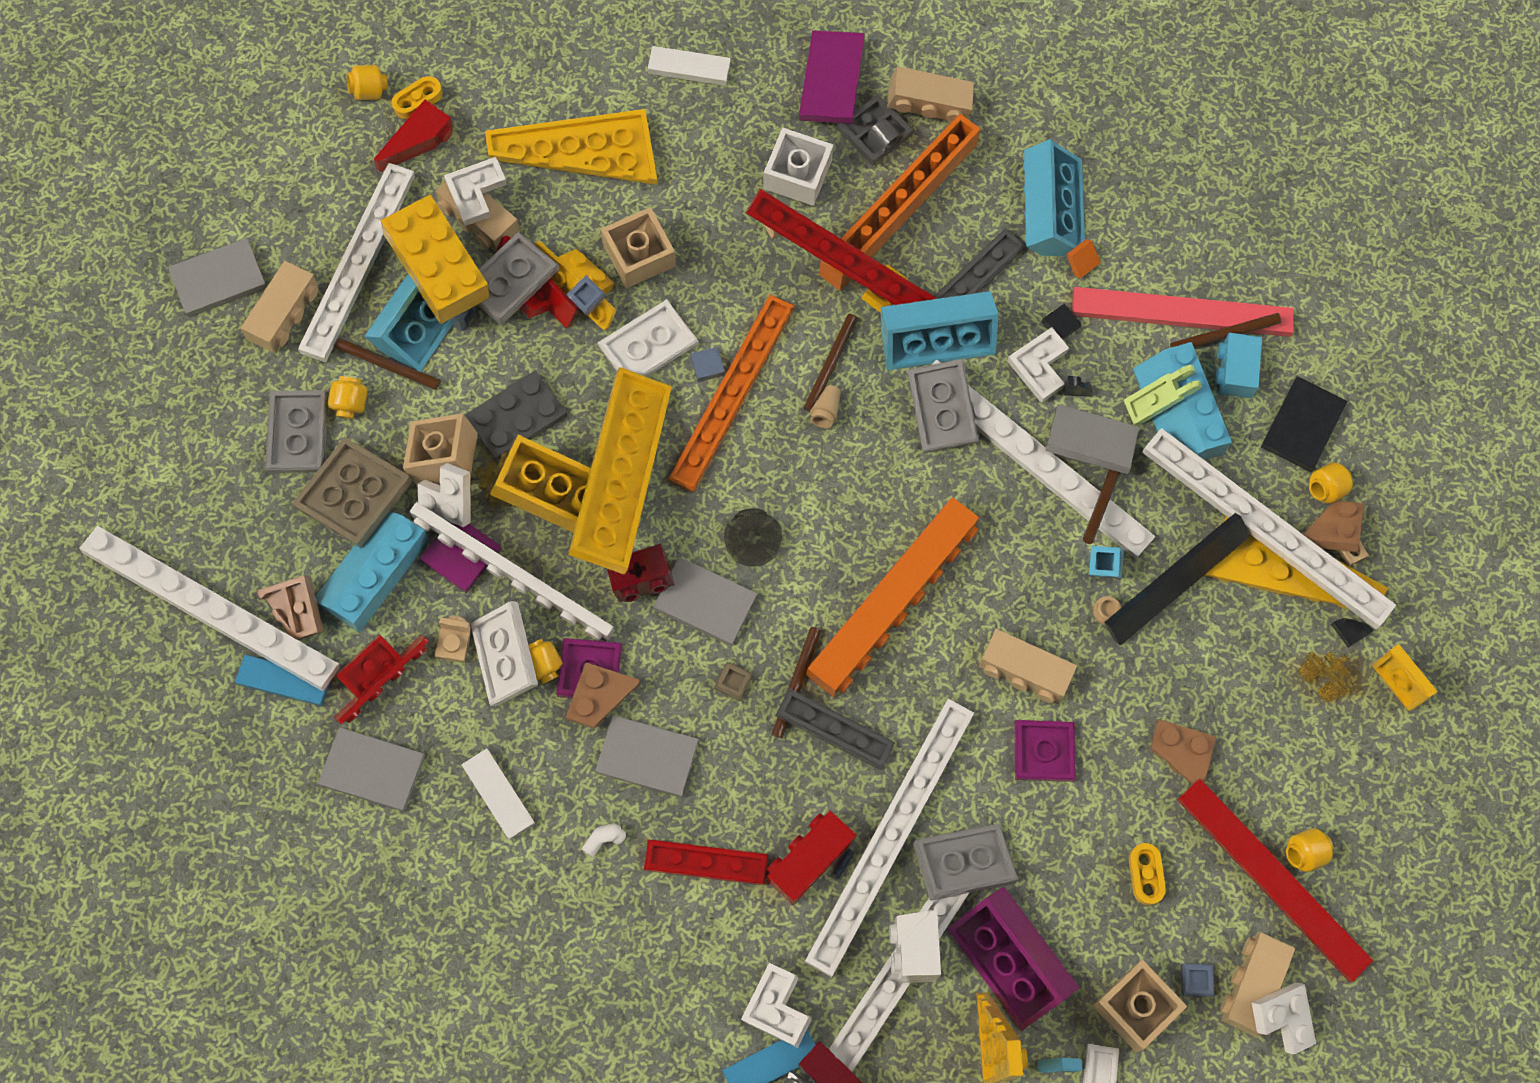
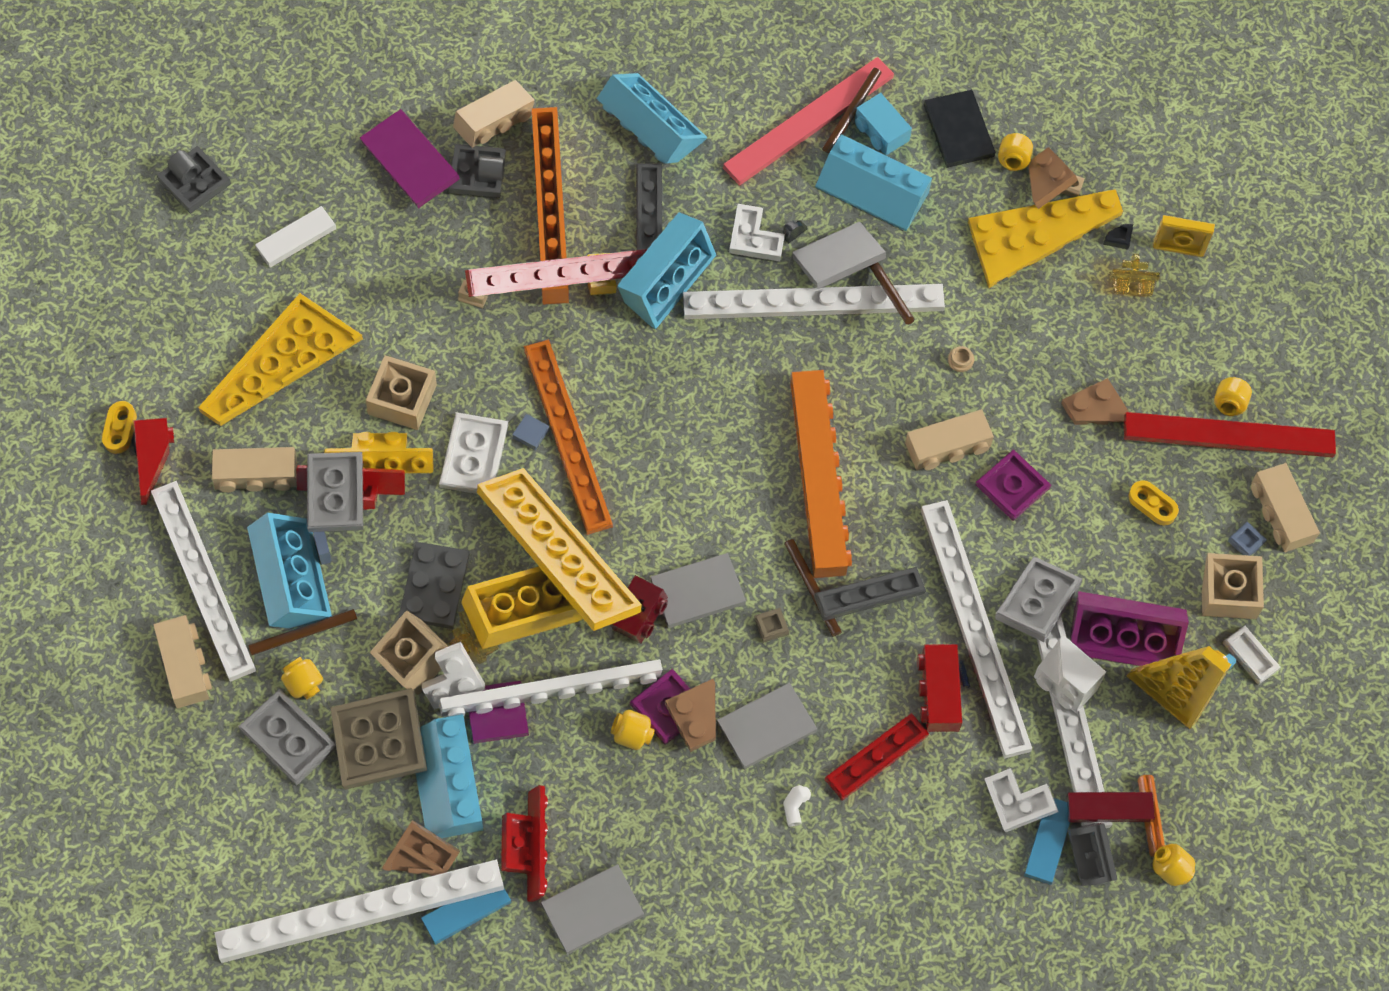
camera: 45 degrees left, 5 degrees down
(217, 277) = (107, 684): light grey tile -> none
(366, 82) = (69, 448): yellow head -> none
(435, 259) = (275, 521): yellow brick -> none
(453, 639) = (555, 771): tan bracket -> none
(469, 185) = (237, 451): white plate -> none
(498, 794) = (695, 843): white tile -> none
(504, 654) = (604, 746): white tile -> none
(586, 295) = (402, 455): sand blue tile -> none
(764, 526) = (681, 533): clear smoke plate -> none
(797, 166) = (454, 240): white slope -> none
(826, 408) = (644, 390): tan cone -> none
(831, 361) = (613, 357): reddish brown bar -> none
(943, 405) = (721, 318): light grey tile -> none
(1062, 321) = (738, 194): black tile -> none
(1083, 258) = (710, 139): orange tile -> none
(1106, 562) = (931, 326): medium azure brick -> none
(1160, 395) = (855, 187): yellowish green hinge -> none
(1177, 579) = (986, 298): black tile -> none
(1270, 529) = (1007, 214): white plate -> none
(1290, 1012) = (1320, 507): white plate -> none

